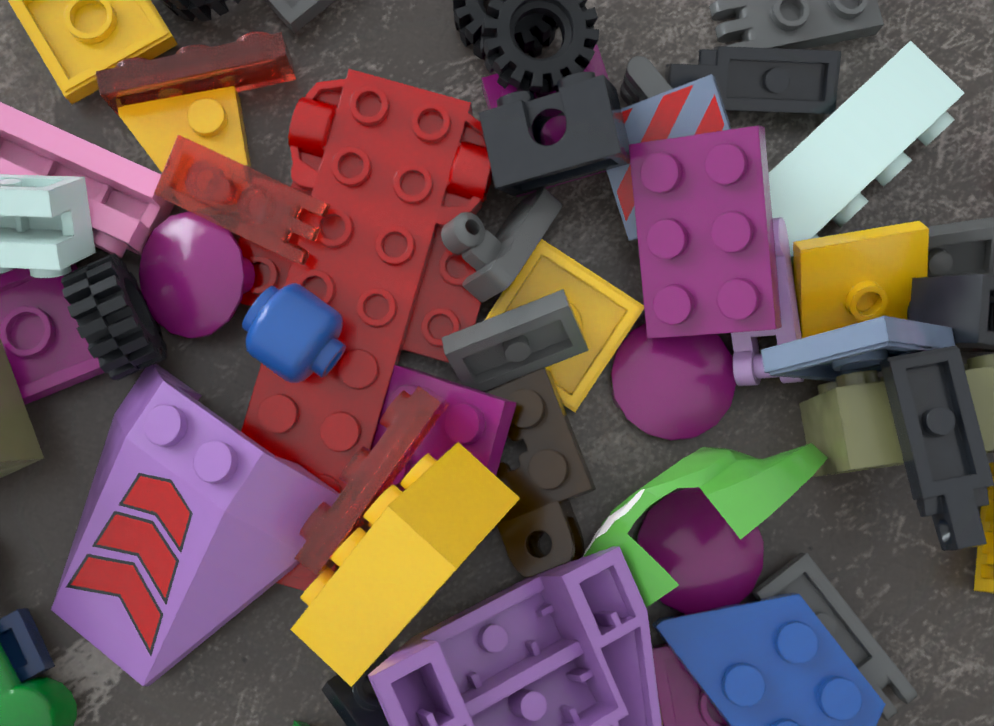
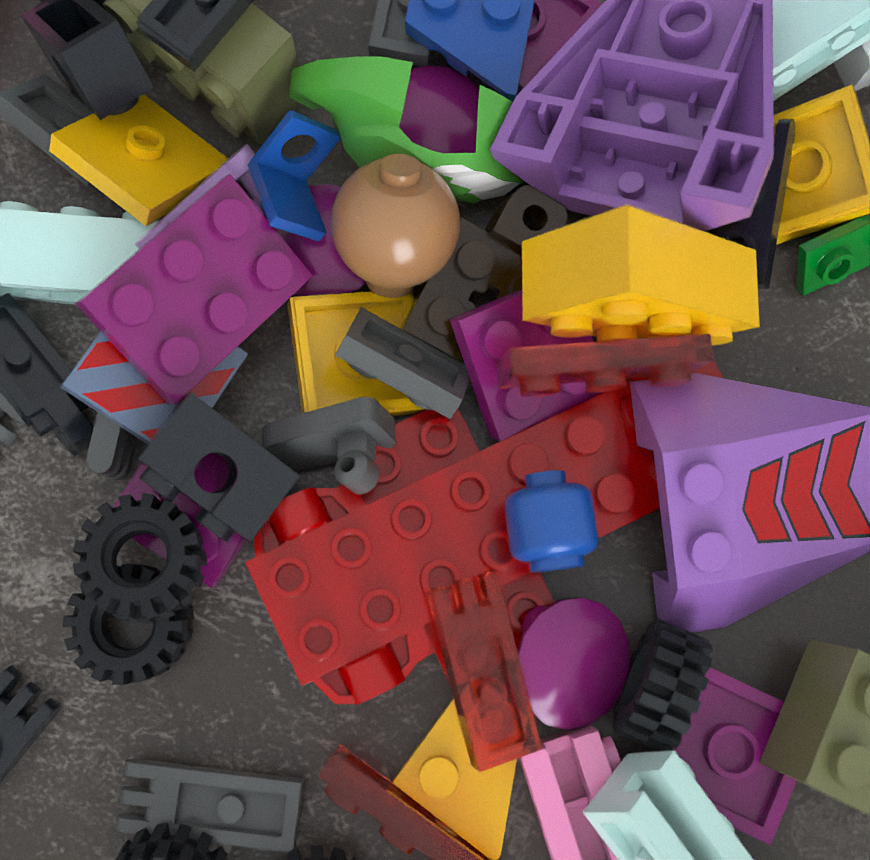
camera: 130 degrees left, 0 degrees up
(628, 427) = (395, 224): none -> medium nougat brick
(738, 378) = (283, 179): none -> blue bracket
(853, 348) = (196, 101): sand blue tile -> none

